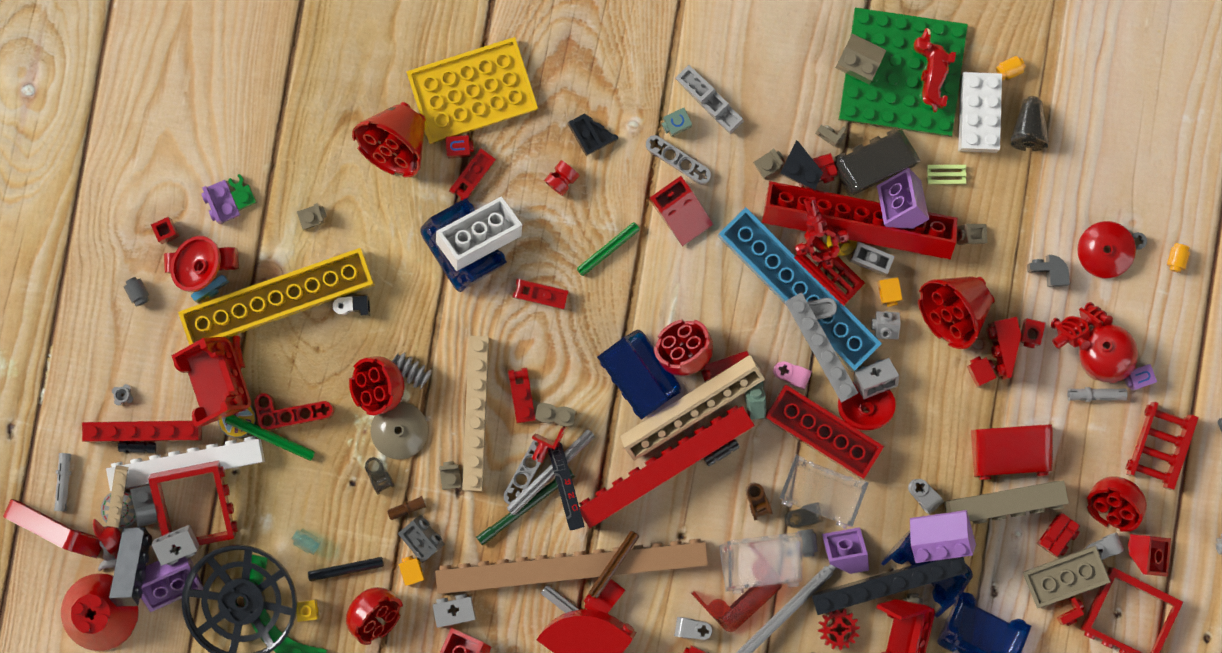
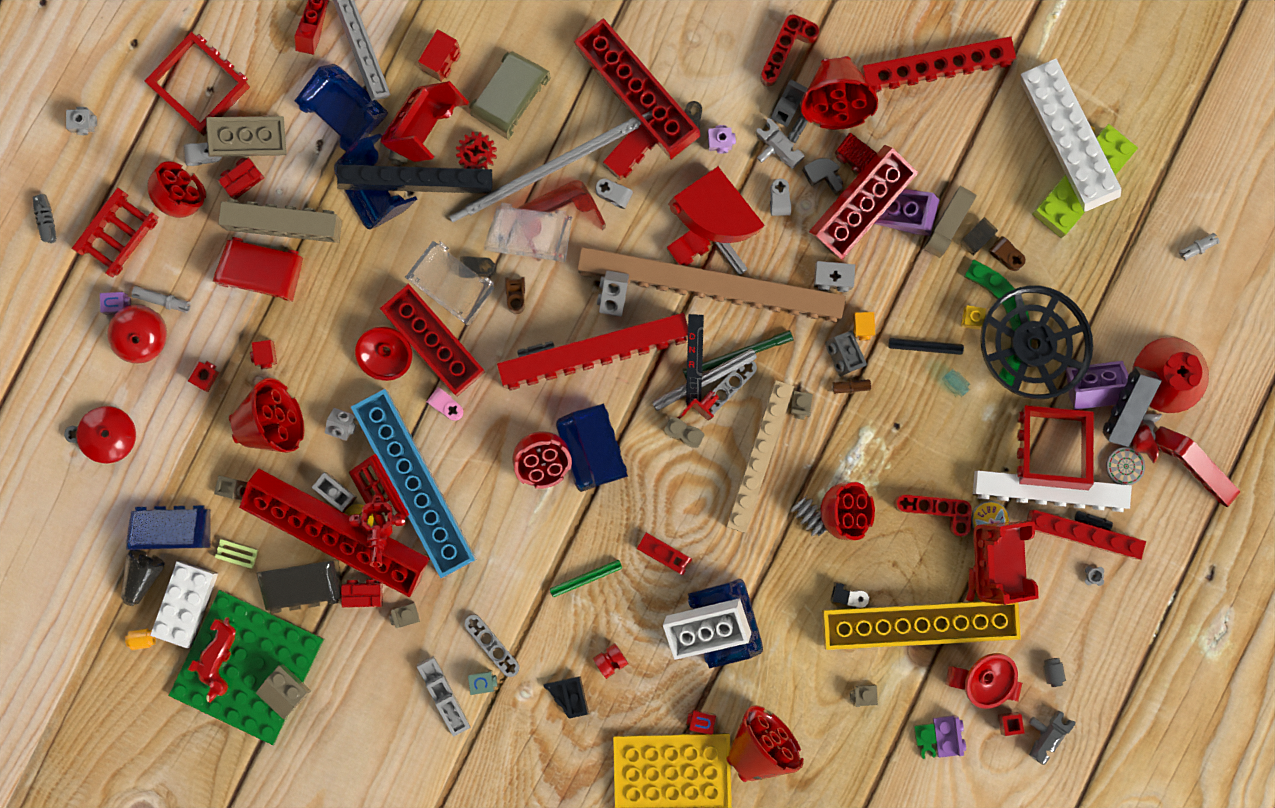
camera: 165 degrees left, 0 degrees up
(62, 482) = (1175, 505): light grey pin -> none
(117, 496) = (1126, 478): tan piece -> none
(124, 230) = (1050, 736): none -> dark grey piece
(143, 506) = (1103, 461): dark grey brick -> none
(182, 537) = (1074, 419): light grey brick -> none
(211, 290) = (980, 652): dark azure plate -> none
(270, 437) = (963, 492): green axle -> none
(365, 607) = (917, 299): red cylinder -> none
(379, 476) = (869, 424): clear smoke piece -> none
(409, 441) = (824, 456): dark tan dish -> none
(473, 174) = (695, 690): red plate -> none
(522, 396) = (710, 460): red plate -> none
(613, 565) = (670, 273): reddish brown axle -> none
(663, 529) = (613, 293): none -> light grey brick
(681, 210) = (504, 594): slope -> none
(692, 407) = (551, 399): tan brick -> none
(717, 367) = (505, 429): red brick -> none
(756, 401) = (488, 392): sand green brick -> none
(801, 167) = (374, 600): black wing -> none
(809, 542) = (478, 241): dark grey brick -> none
(821, 347) = (409, 420): light grey plate -> none
(823, 308) = (401, 457): light grey tile -> none
(827, 134) = (339, 627): dark tan bracket -> none
(847, 550) = (445, 223): medium lavender slope -> none
(876, 378) = (366, 376): light grey brick -> none
(890, 291) = (327, 455): light orange brick -> none
(903, 201) = (286, 538): medium lavender slope -> none
(927, 497) = (354, 250): light grey piece -> none
(941, 536) = (351, 205): slope -> none
(1005, 340) = (230, 375): red slope -> none
(1017, 178) = (169, 528): none -> clear blue windscreen
(1055, 268) = (161, 430): dark grey brick -> none
(1070, 616) = (253, 100): red bracket -> none
(1074, 325) = (161, 370): red piece -> none
(1150, 554) = (160, 135): red slope -> none
(1178, 257) = (39, 406): light orange brick -> none

